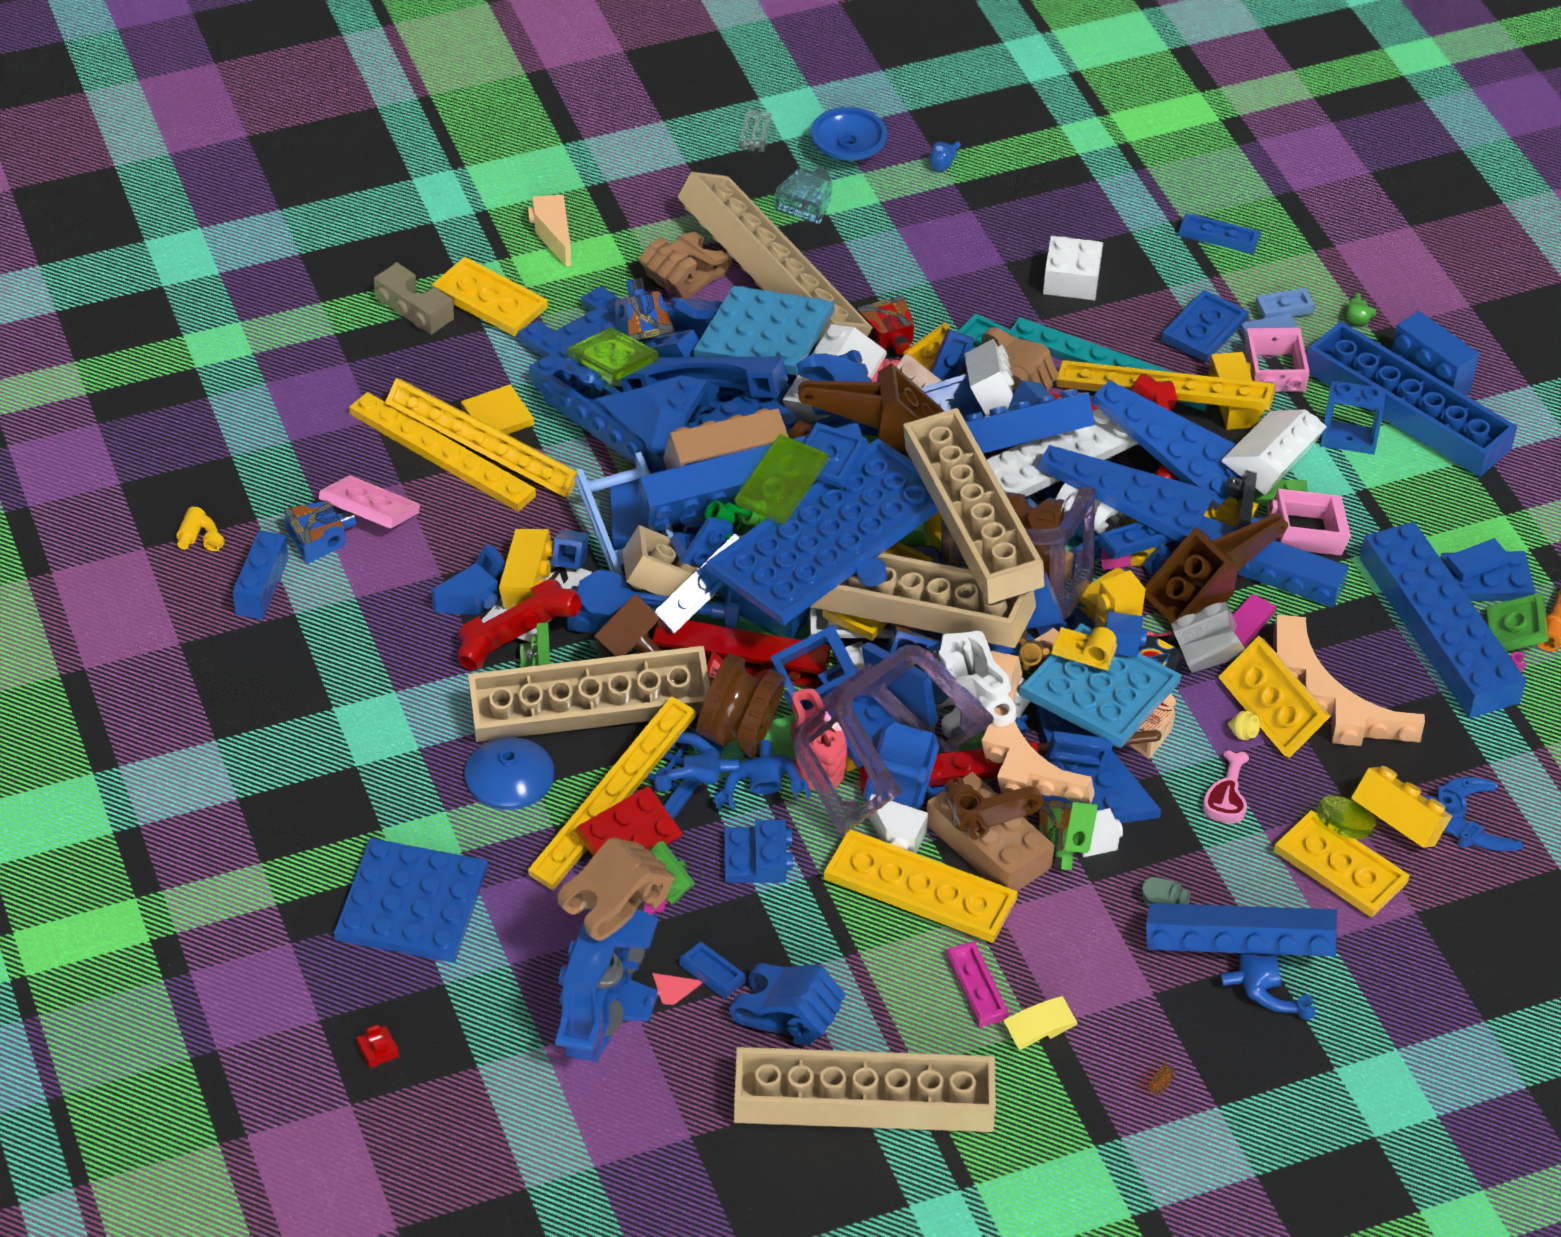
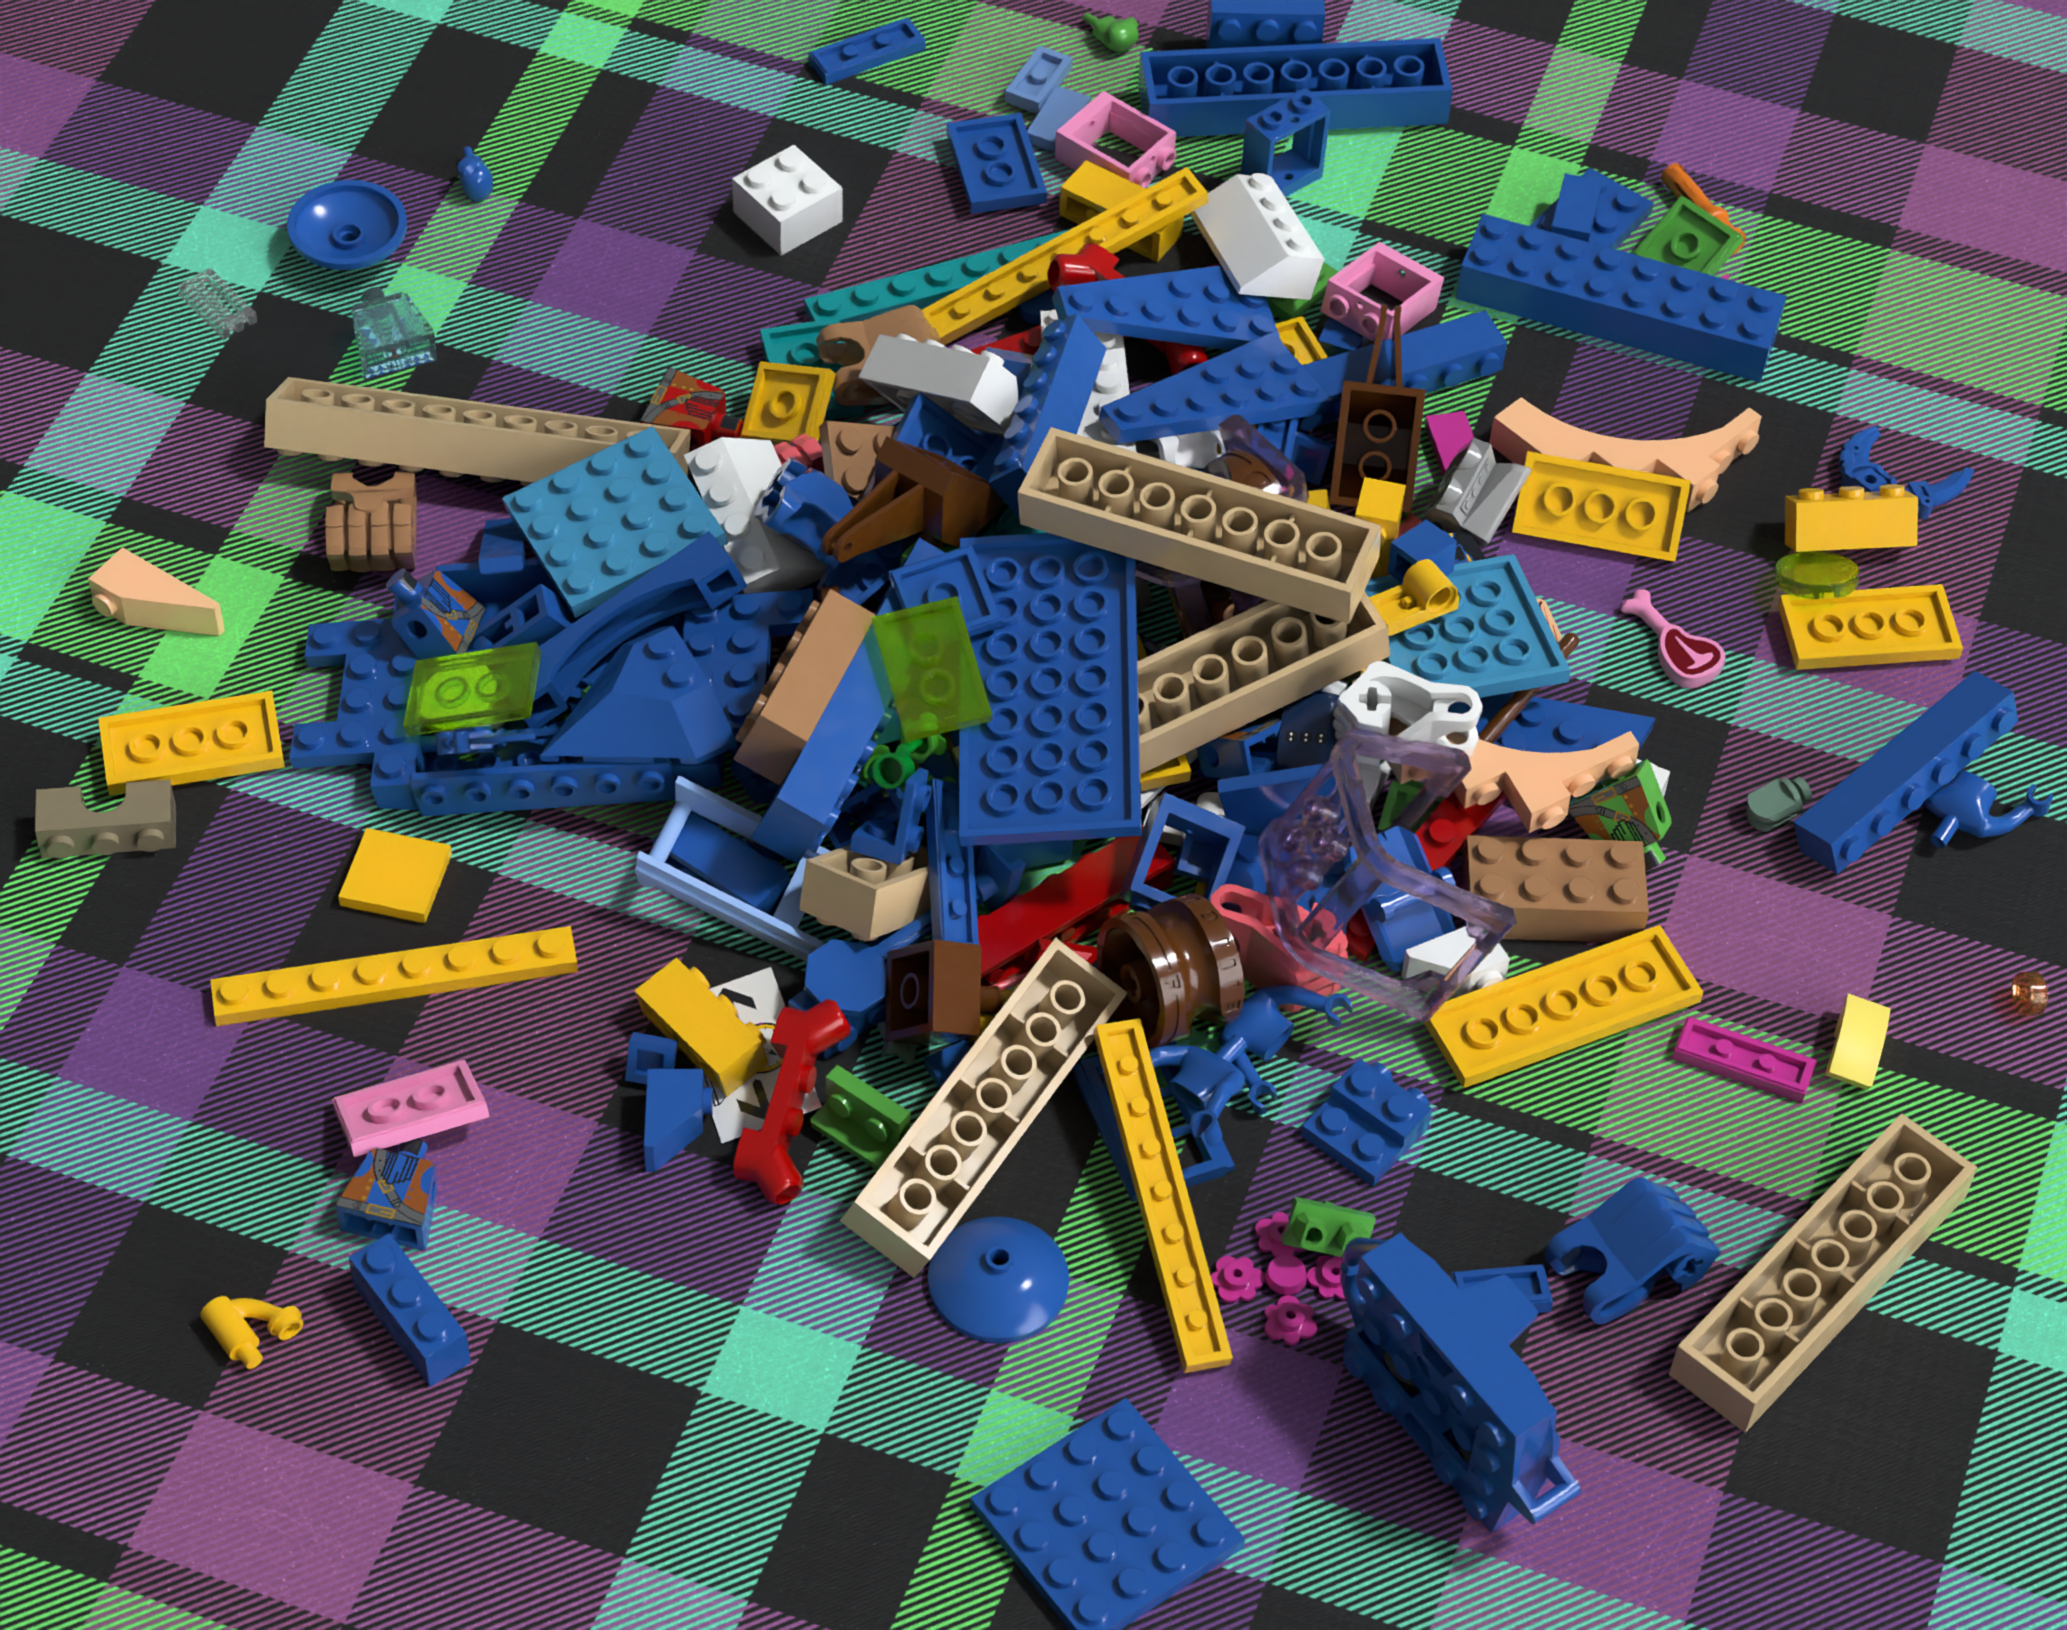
camera: 50 degrees left, 5 degrees up
(482, 437) = (429, 918): yellow plate -> none
(570, 549) = (721, 959): blue brick -> none
(615, 886) = (1448, 1275): medium nougat piece -> none
(634, 819) = (1238, 1222): red plate -> none
(871, 572) = (1158, 694): blue tile -> none
(951, 355) = (834, 388): blue plate -> none
(975, 814) = (1544, 872): reddish brown piece -> none
(1078, 748) = (1529, 716): blue tile -> none
(1244, 491) = (1321, 324): black hinge -> none
(1245, 725) = (1602, 562): light yellow plate -> none

